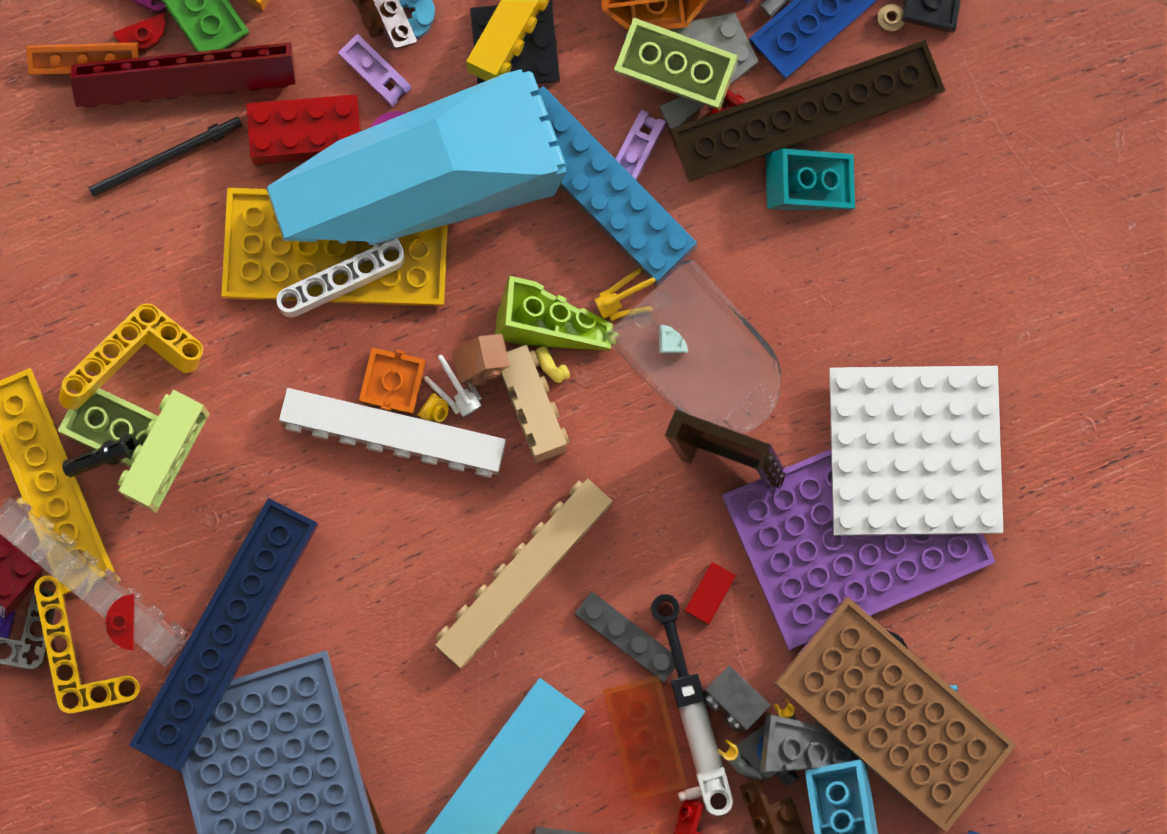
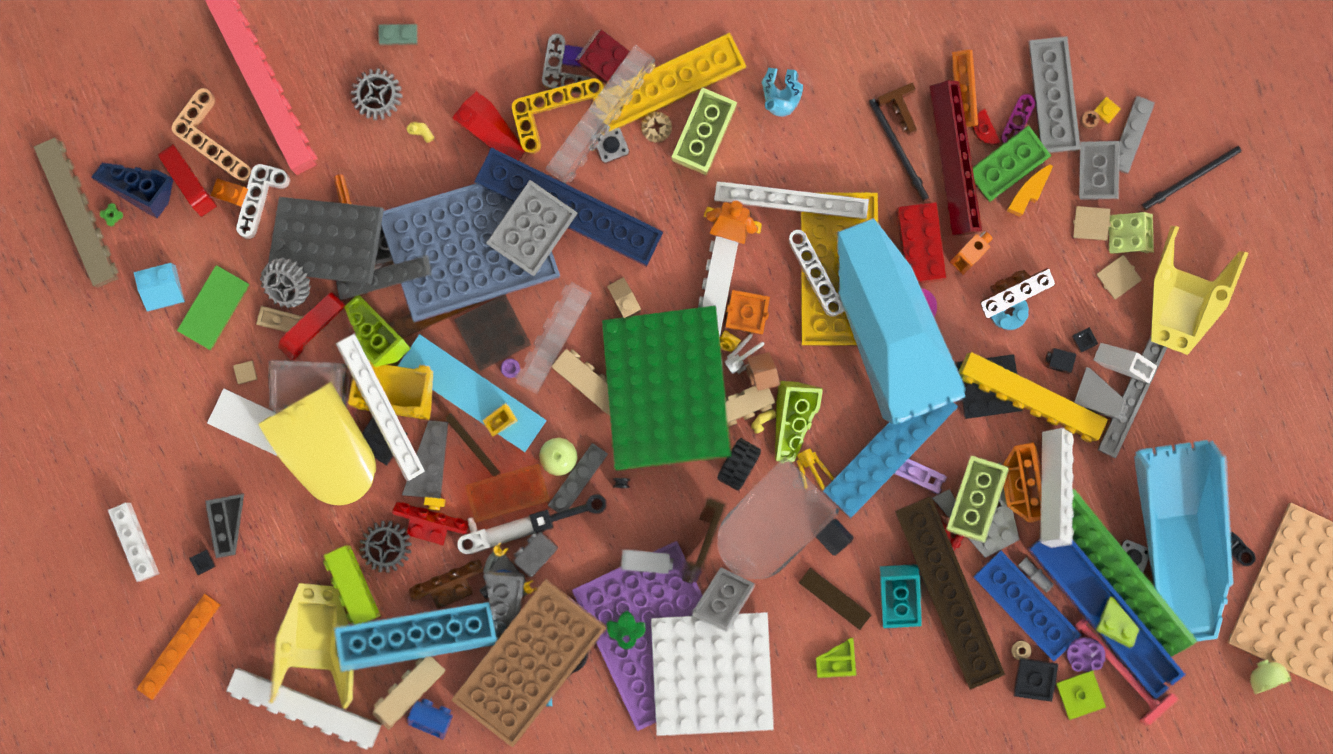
camera: 90 degrees right, 5 degrees up
(85, 314) = (782, 101): none -> medium azure piece
(91, 756) = (486, 124): none -> red wedge
(103, 513) = (651, 134): none -> tan gear
(105, 149) = (899, 106): none -> reddish brown bracket
(109, 453) = (686, 122): black pin -> none
(121, 622) = (572, 137): red plate -> none
(123, 350) = (759, 128): yellow beam -> none
(136, 568) = (612, 146): none -> piece
(163, 451) = (687, 158): yellowish green brick -> none
(232, 307) = (792, 200): none -> white plate
(253, 687) = (531, 228): none -> light grey plate
(259, 396) = (732, 221): none -> orange torso
(322, 59) = (971, 252): none -> orange torso
(363, 558) = (624, 298): none -> tan slope
(374, 69) = (966, 289): lavender plate -> none
(405, 755) = (492, 332): none -> clear smoke plate
(418, 664) = (553, 338): none -> clear brick
(459, 731) = (510, 368): none -> medium lavender tile
(500, 498) = (666, 388): none -> green plate
(537, 744) = (500, 420): none -> yellow slope
(572, 789) = (472, 445): none -> dark brown tile
(592, 664) = (558, 456): none -> yellowish green cylinder
(614, 398) = (739, 465): none -> black tyre
(635, 572) = (621, 483): none -> black bush
(671, 341) = (782, 502): light aqua tile -> none
(710, 593) = (609, 535): red tile -> none
(725, 267) = (835, 537): none -> black piece
(752, 538) = (646, 561): none -> light grey slope
(809, 429) = (723, 599): none -> light grey plate
(811, 274) = (835, 598): none -> dark brown tile
(846, 571) = (626, 627): none -> green plate
(901, 273) = (837, 661): none -> lime wing

